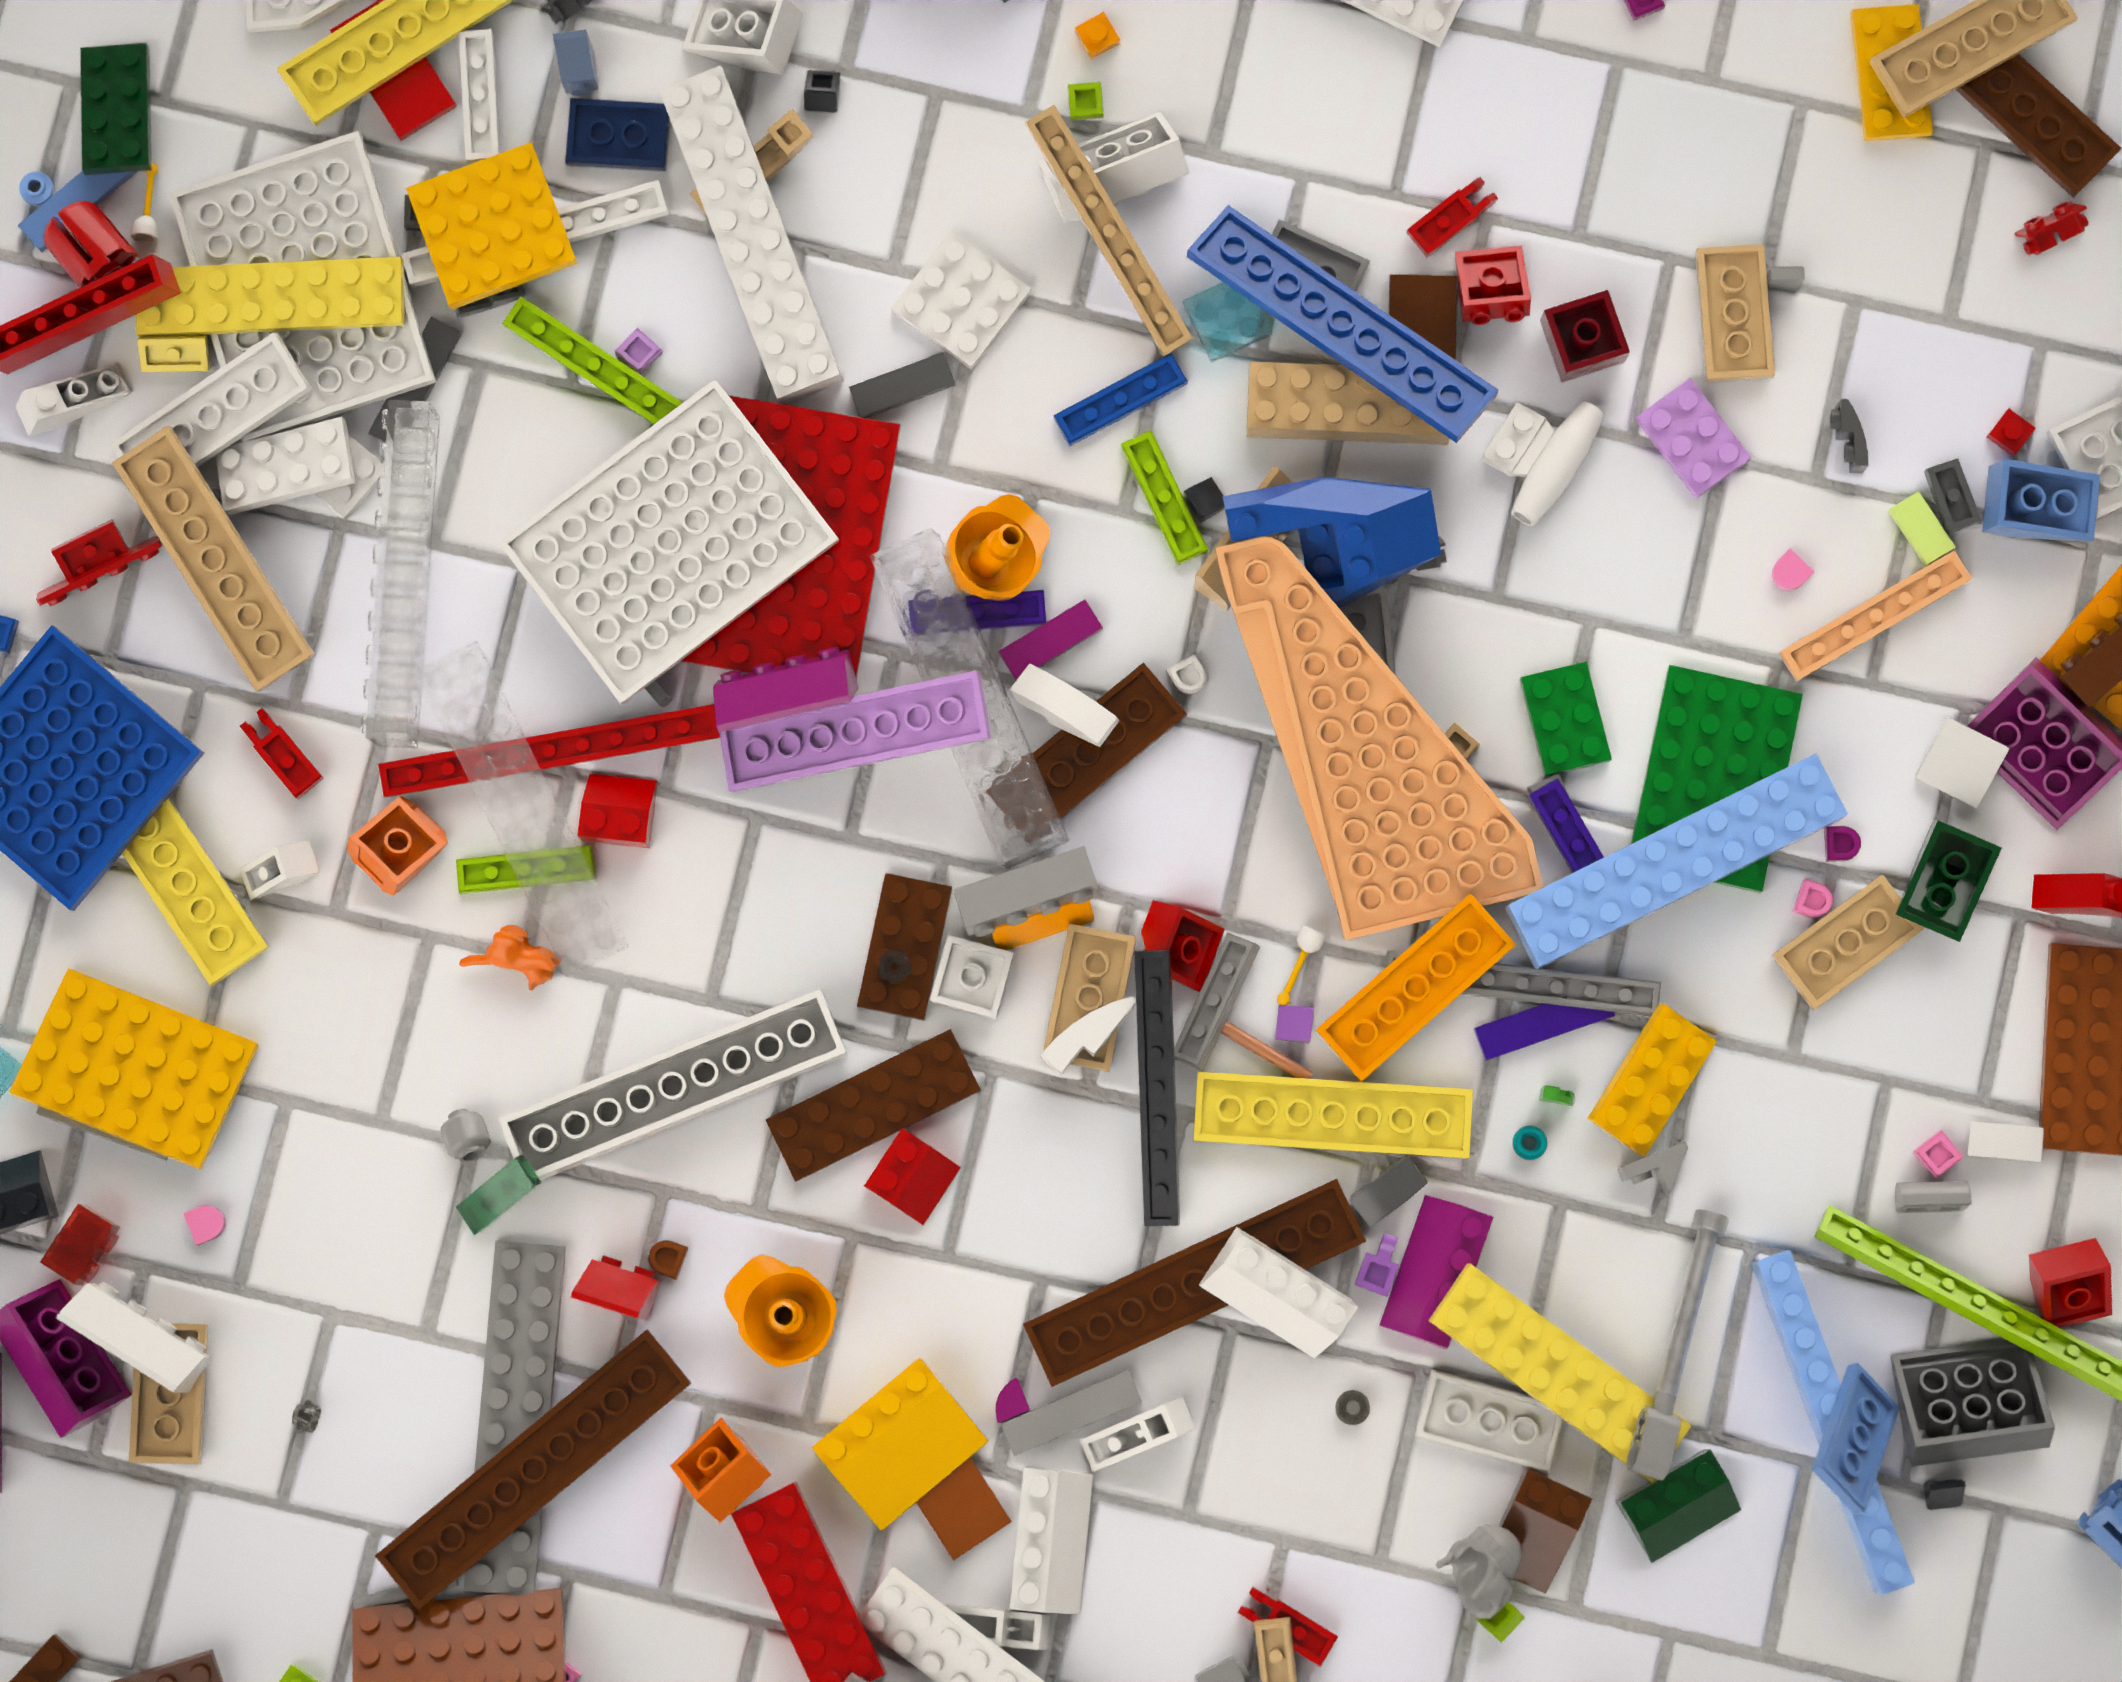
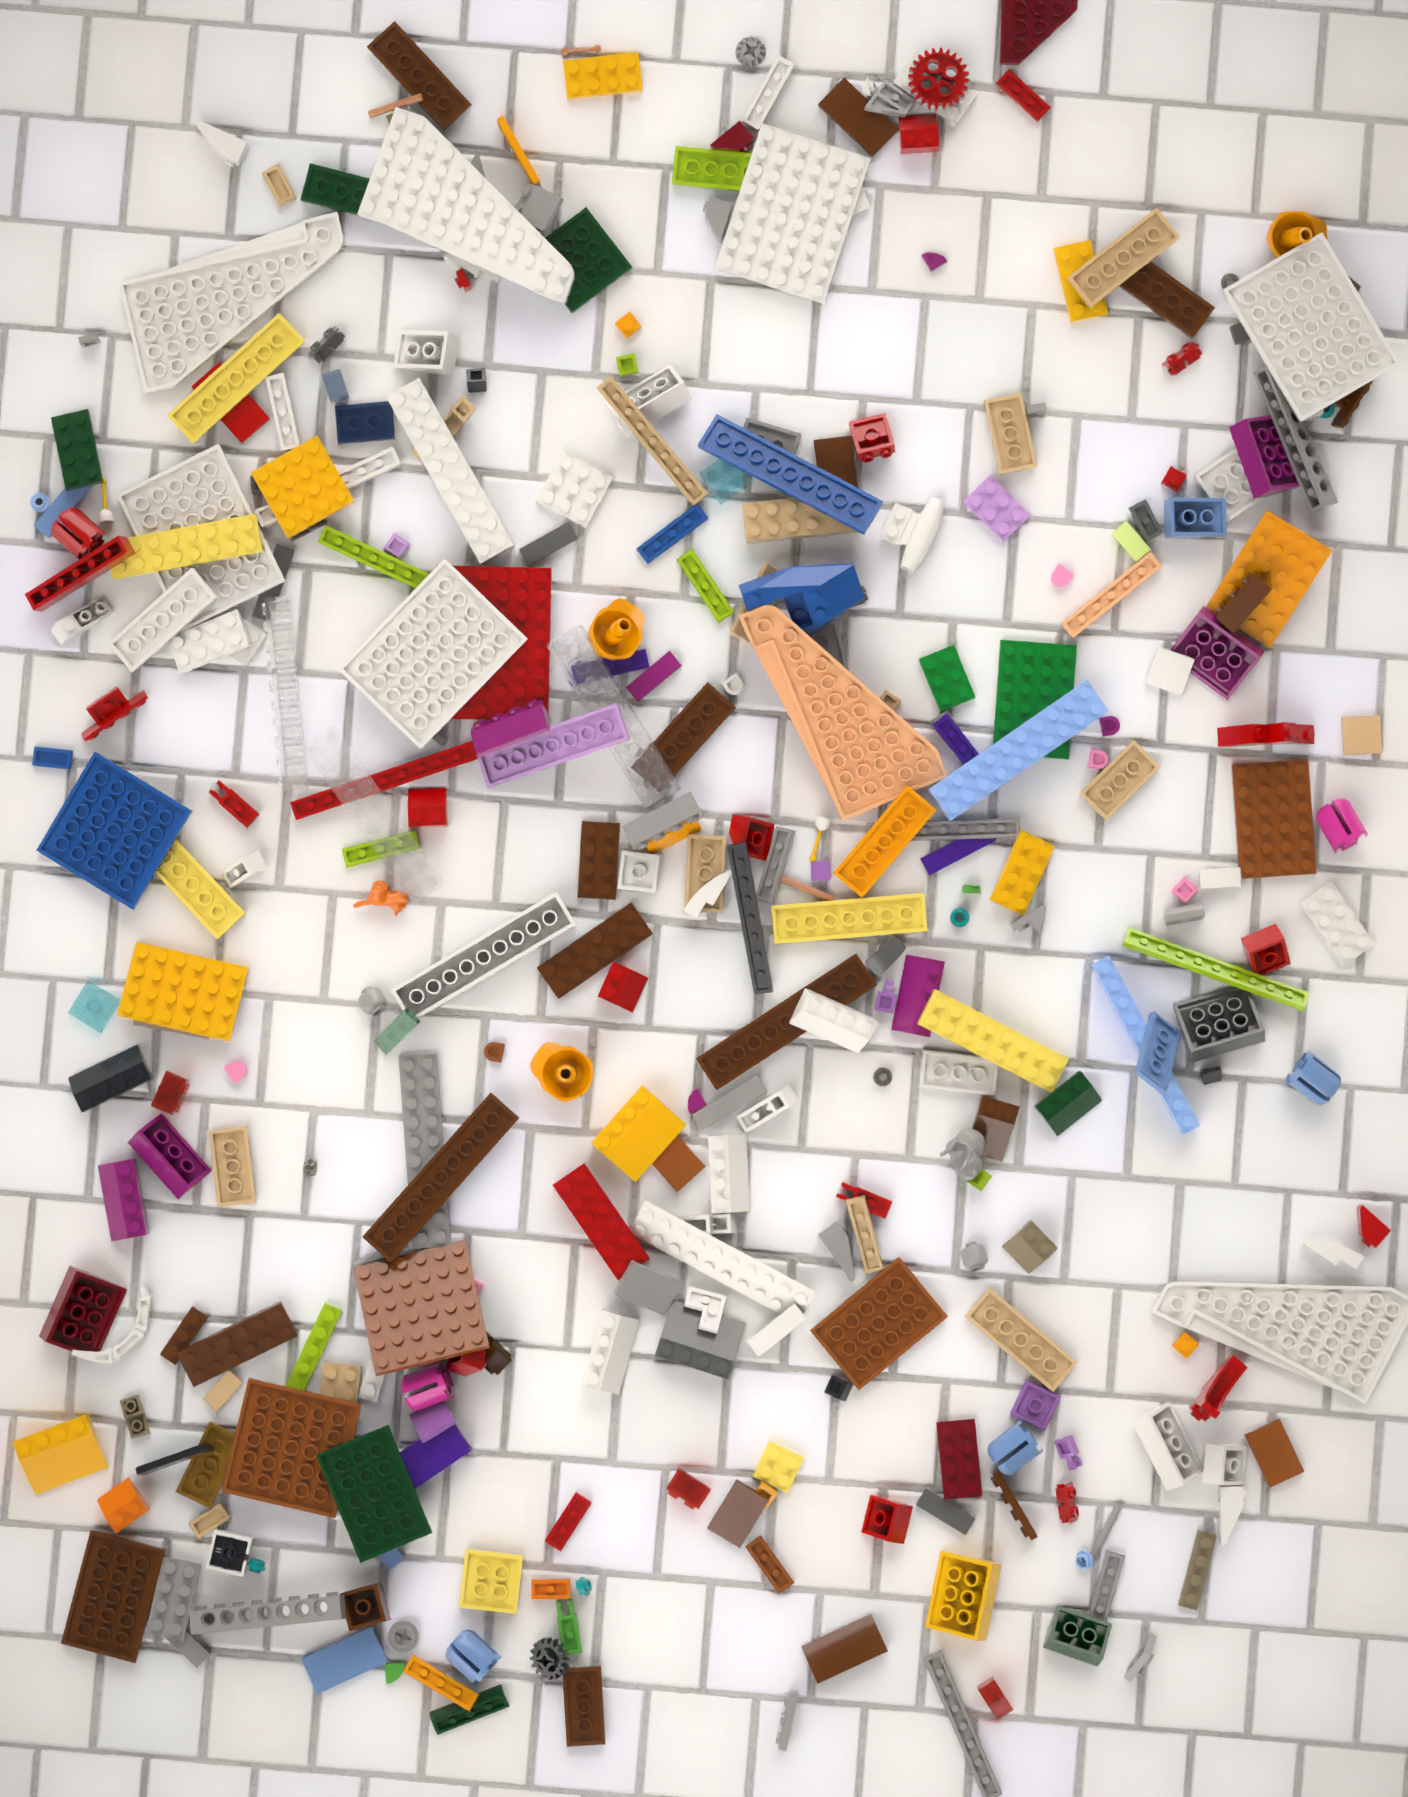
camera: 15 degrees left, 5 degrees up
(135, 1337) = (210, 1138): white slope -> none
(174, 353) = (135, 586): light yellow plate -> none
(213, 558) = (178, 700): tan plate -> none
(396, 844) = (307, 846): orange slope -> none
(618, 1289) = (471, 1072): red slope -> none
(720, 1470) = (543, 1162): orange brick -> none
(898, 958) = (595, 878): clear smoke plate -> none
(1063, 705) = (666, 713): white slope -> none
(1204, 499) = (728, 583): black slope -> none
(1449, 218) = (842, 403): red hinge -> none
(1584, 336) = (927, 460): dark red brick -> none
(1657, 1427) = (1049, 1062): piece -> none
(1848, 427) = (1082, 490): dark grey slope -> none
(1947, 880) = (1169, 738): dark green slope -> none

